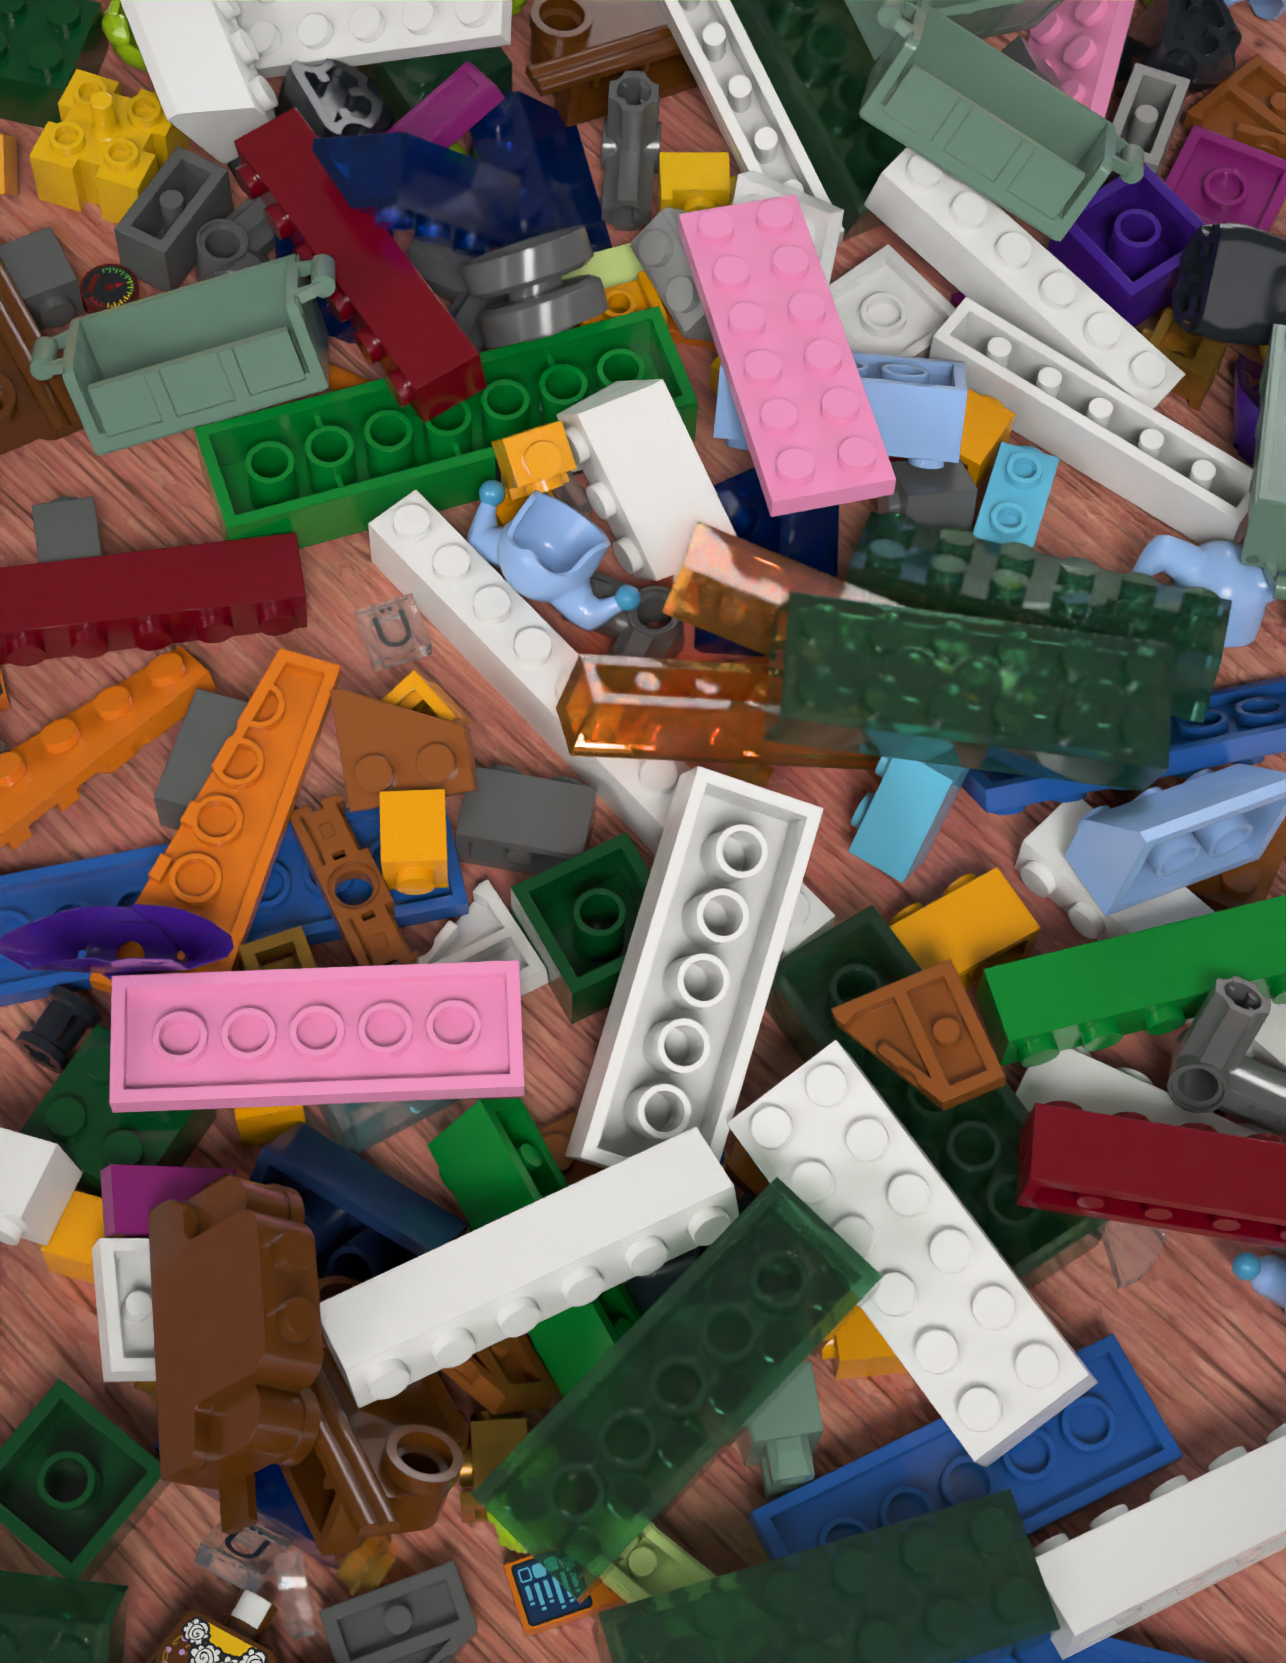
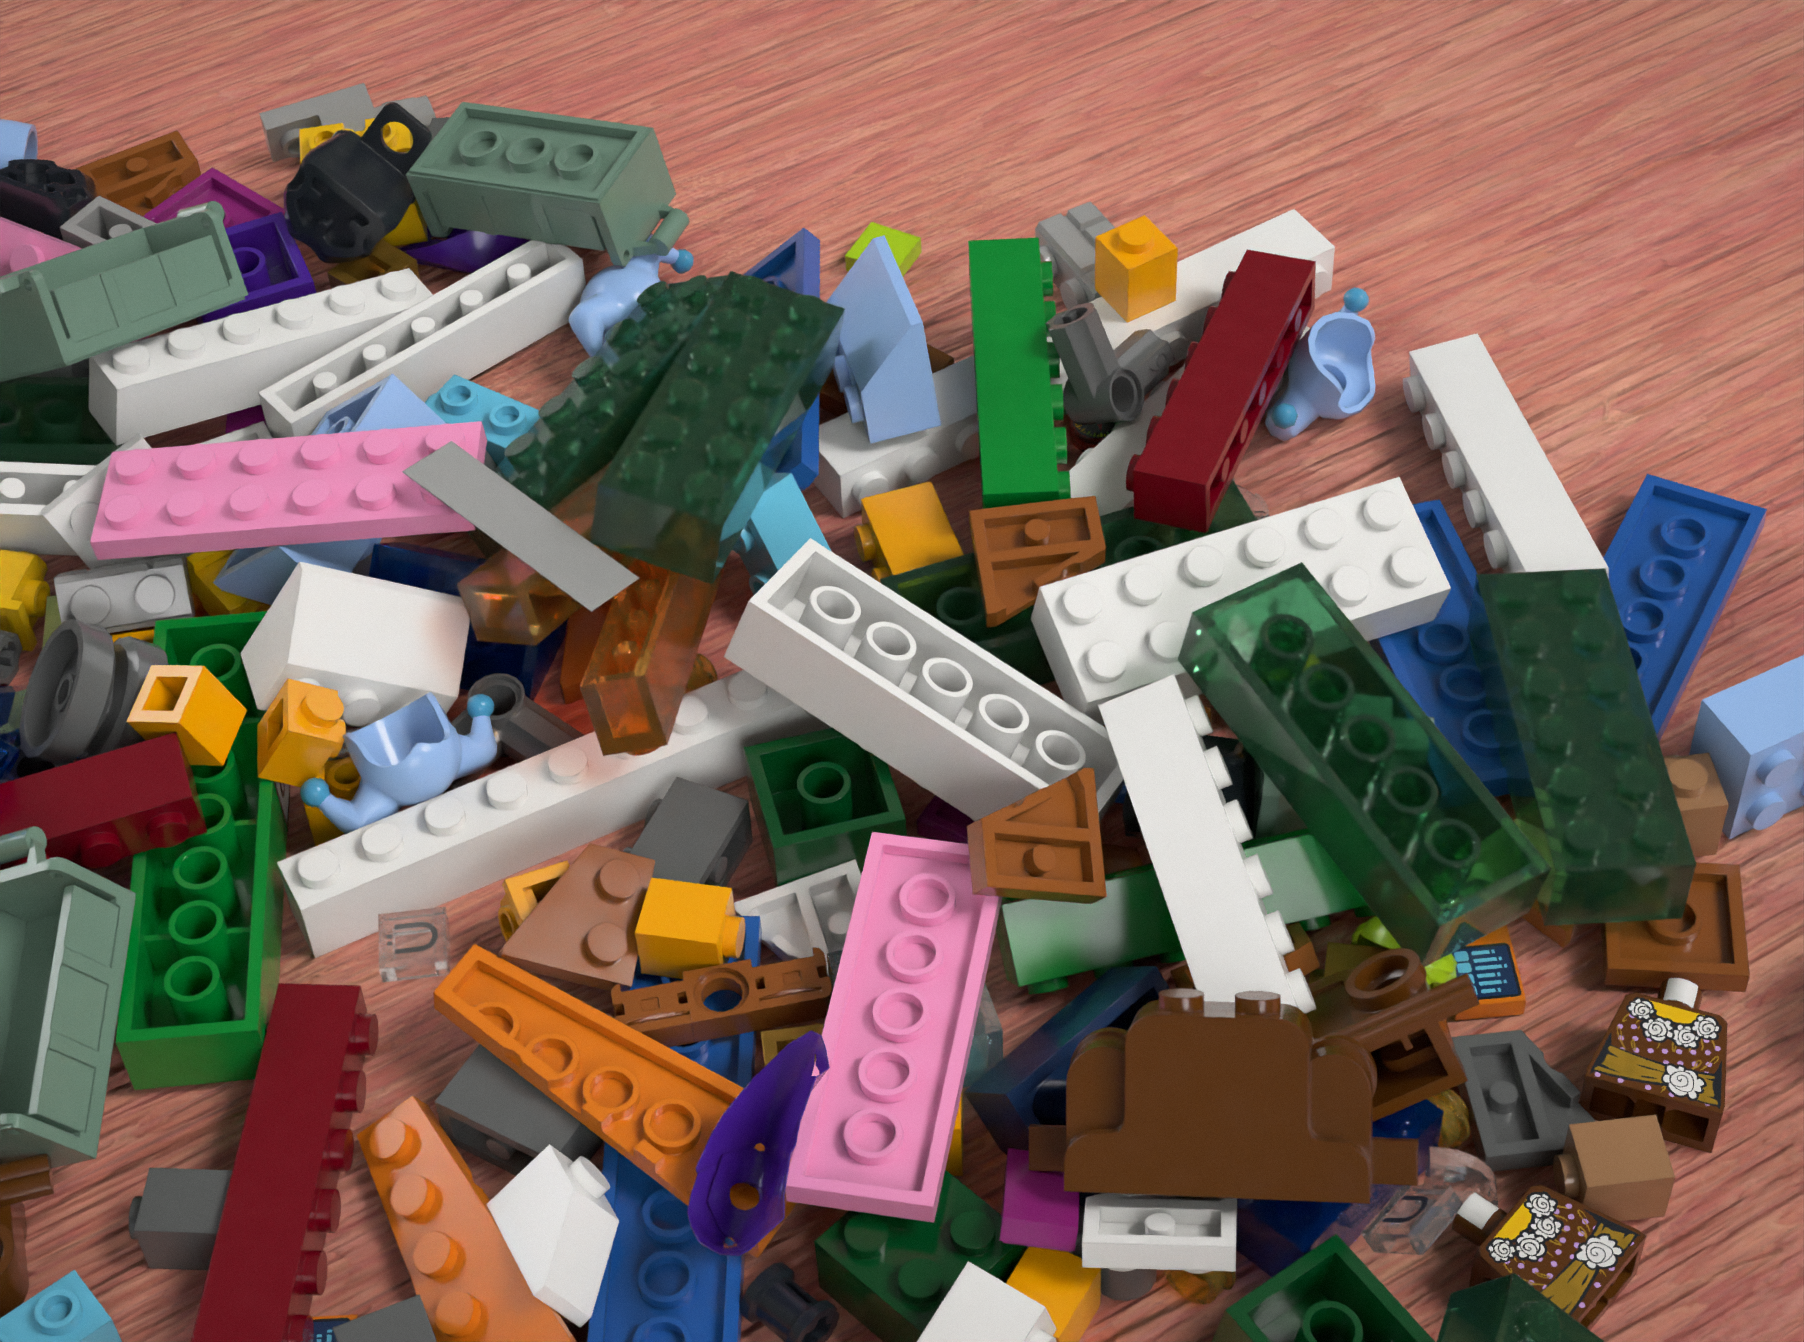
camera: 70 degrees left, 15 degrees down
(83, 822) = (558, 1230): none -> white slope
(515, 359) = (192, 705): none -> light orange brick
(522, 1110) = (1042, 845): none -> dark orange wing
(764, 549) = (521, 526): none -> light grey sticker

